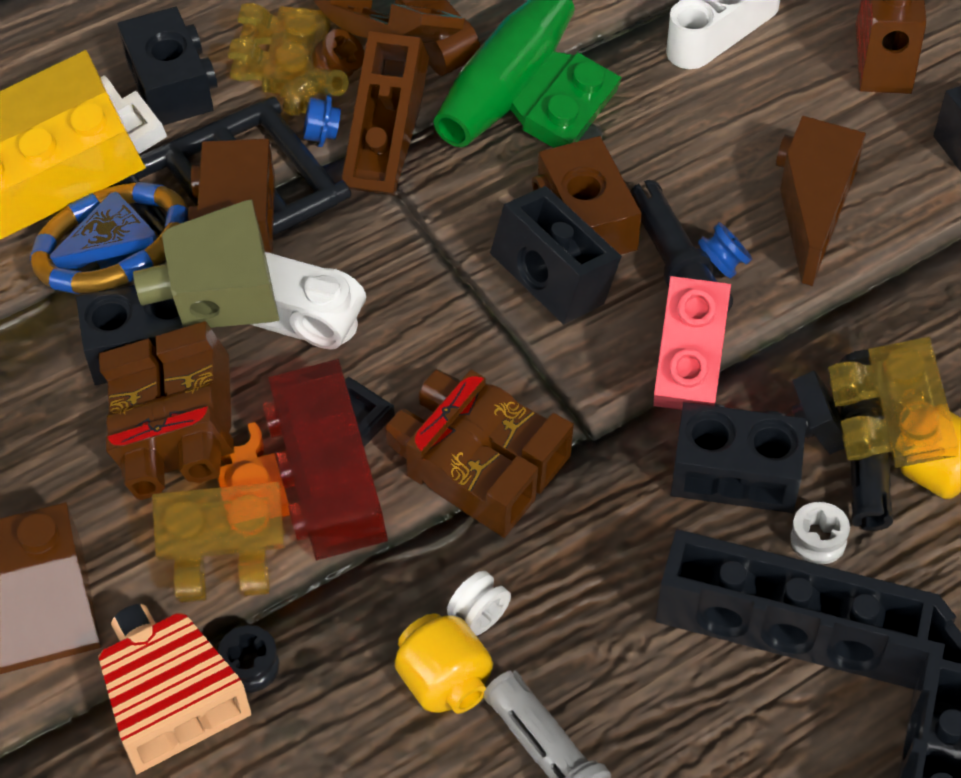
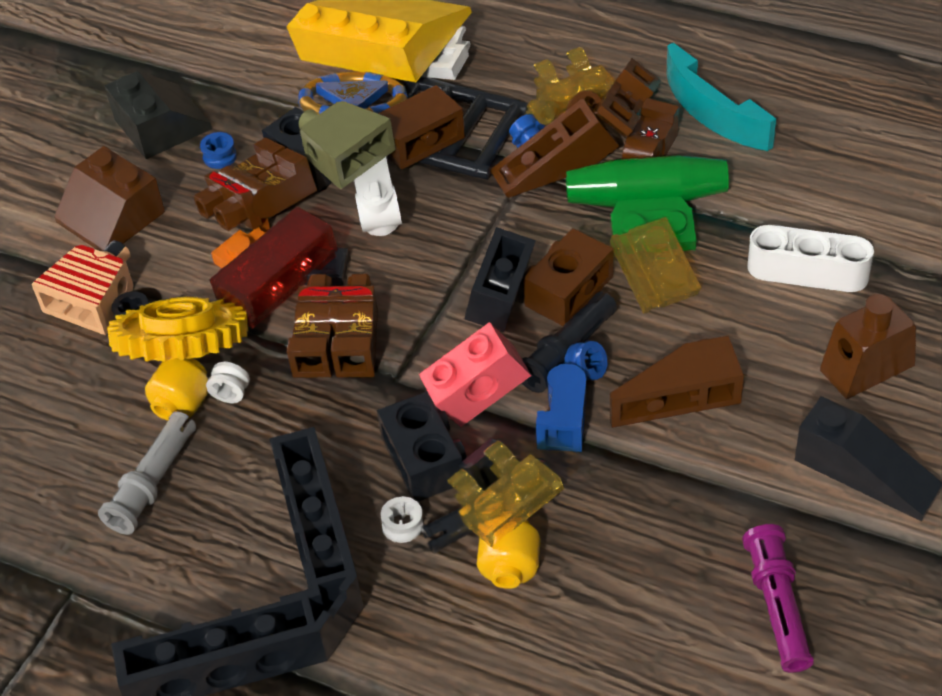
camera: 60 degrees right, 5 degrees down
(40, 441) = (218, 150): none -> blue bush
(168, 65) = (505, 48): black brick -> none
(219, 523) = (196, 244): clear yellow plate -> none
(368, 608) = (177, 329): none -> yellow gear
(634, 123) = (655, 265): none -> clear yellow plate
(779, 303) = (564, 424): none -> blue leg

